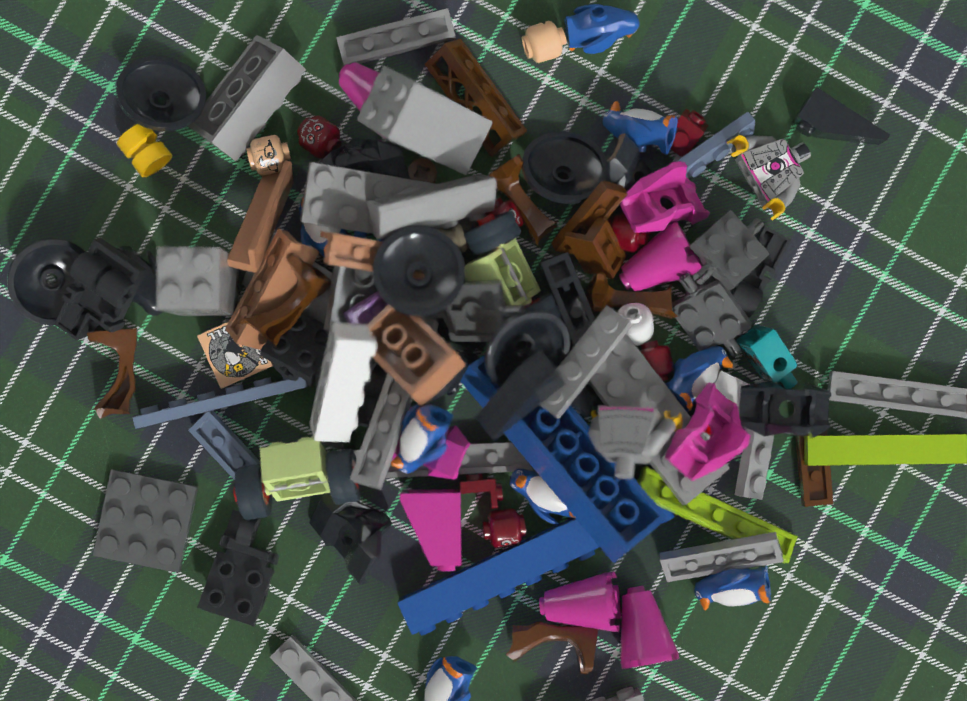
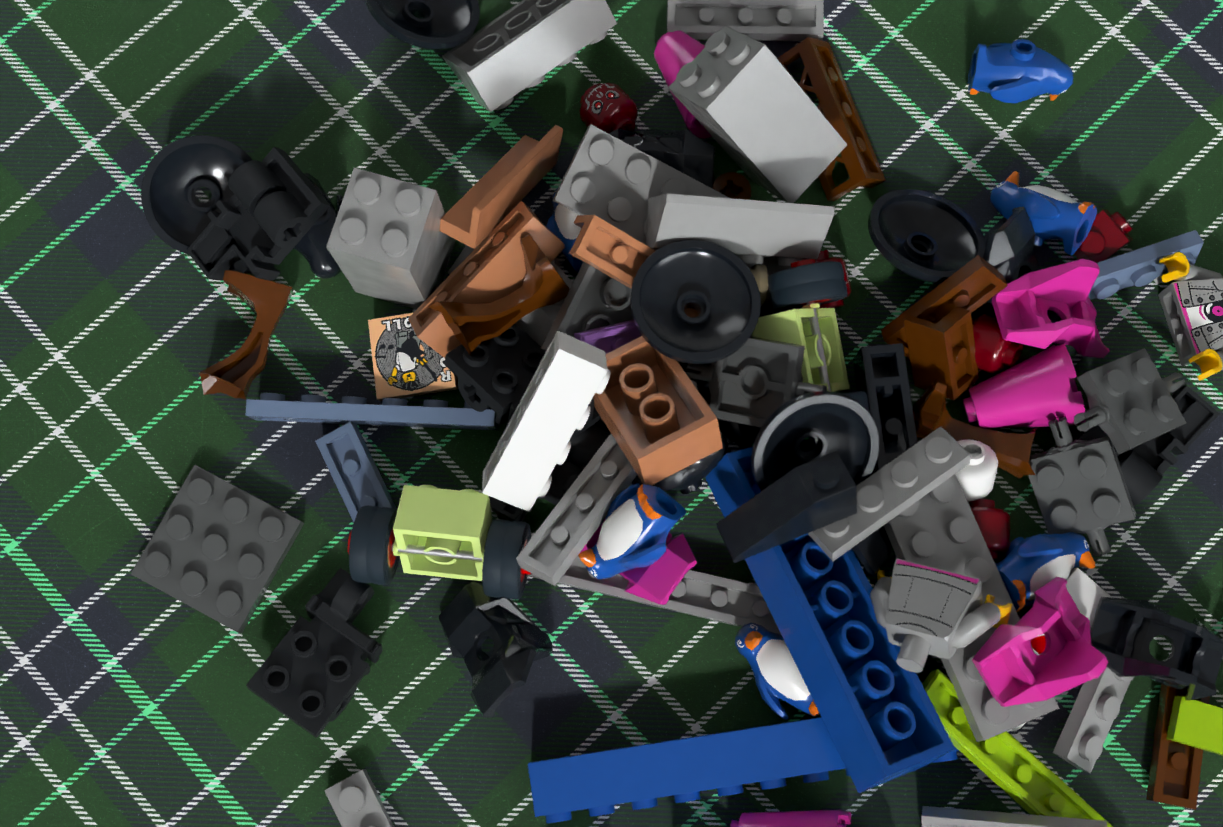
camera: 25 degrees right, 10 degrees down
(146, 152) = (378, 67): yellow wheel -> none
(267, 154) = (534, 114): light nougat head -> none
(437, 523) = (617, 666): dark pink slope -> none
(476, 483) = (687, 628): dark red bracket -> none
(504, 528) = (709, 703): dark red head -> none
(508, 183) = (867, 298): reddish brown animal -> none
(543, 41) = (938, 72): light nougat head -> none
(768, 355) = (1150, 565): teal torso -> none

